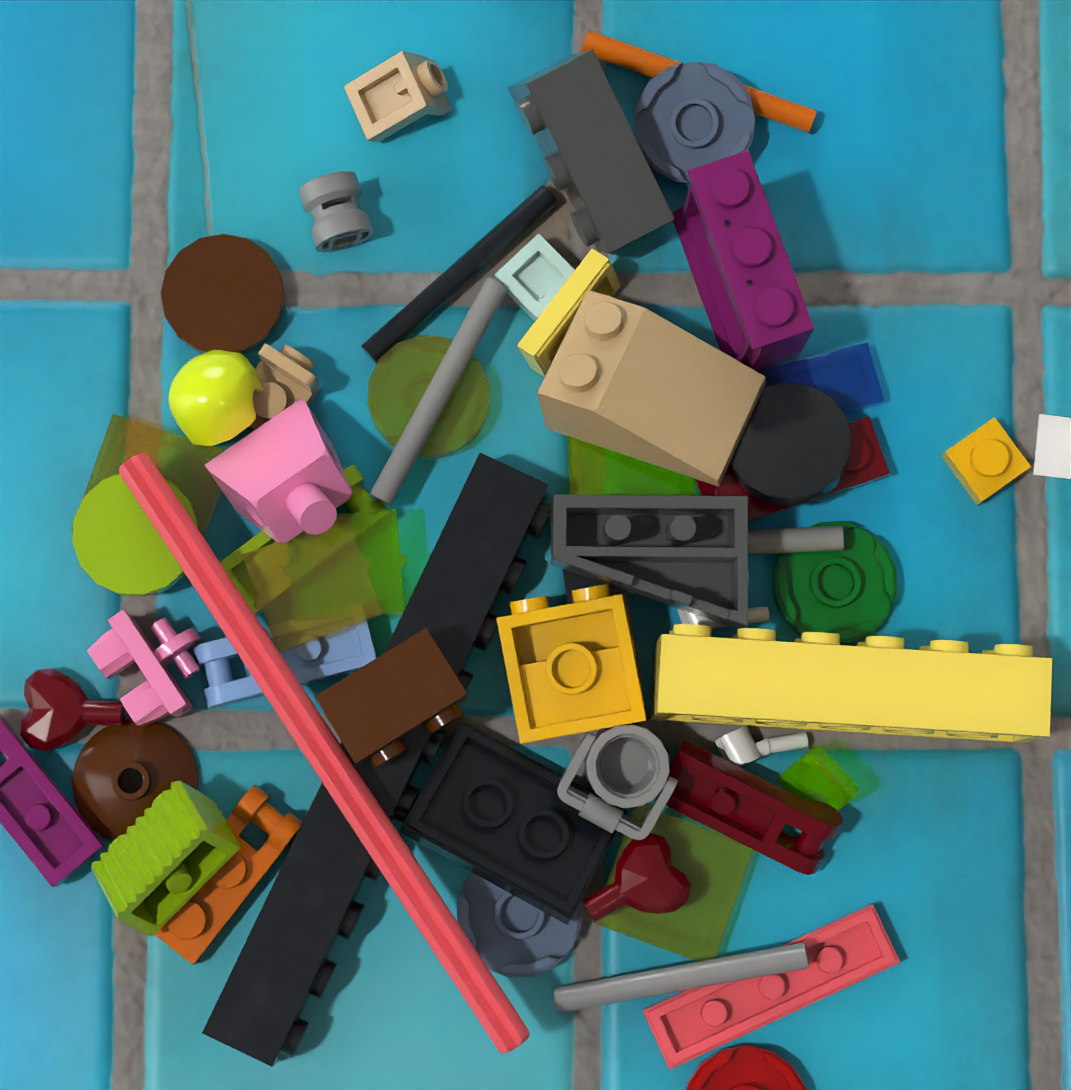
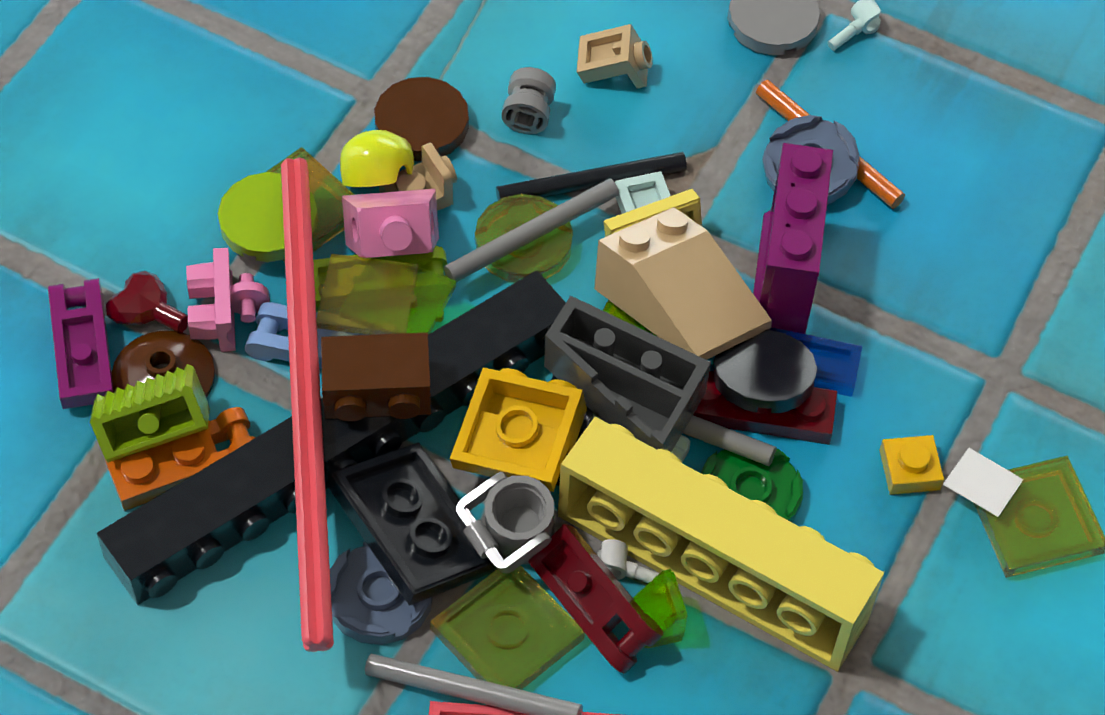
camera: 30 degrees right, 25 degrees down
(591, 152) = (726, 135): dark grey wedge -> none
(642, 881) = (484, 603): dark red rock -> none

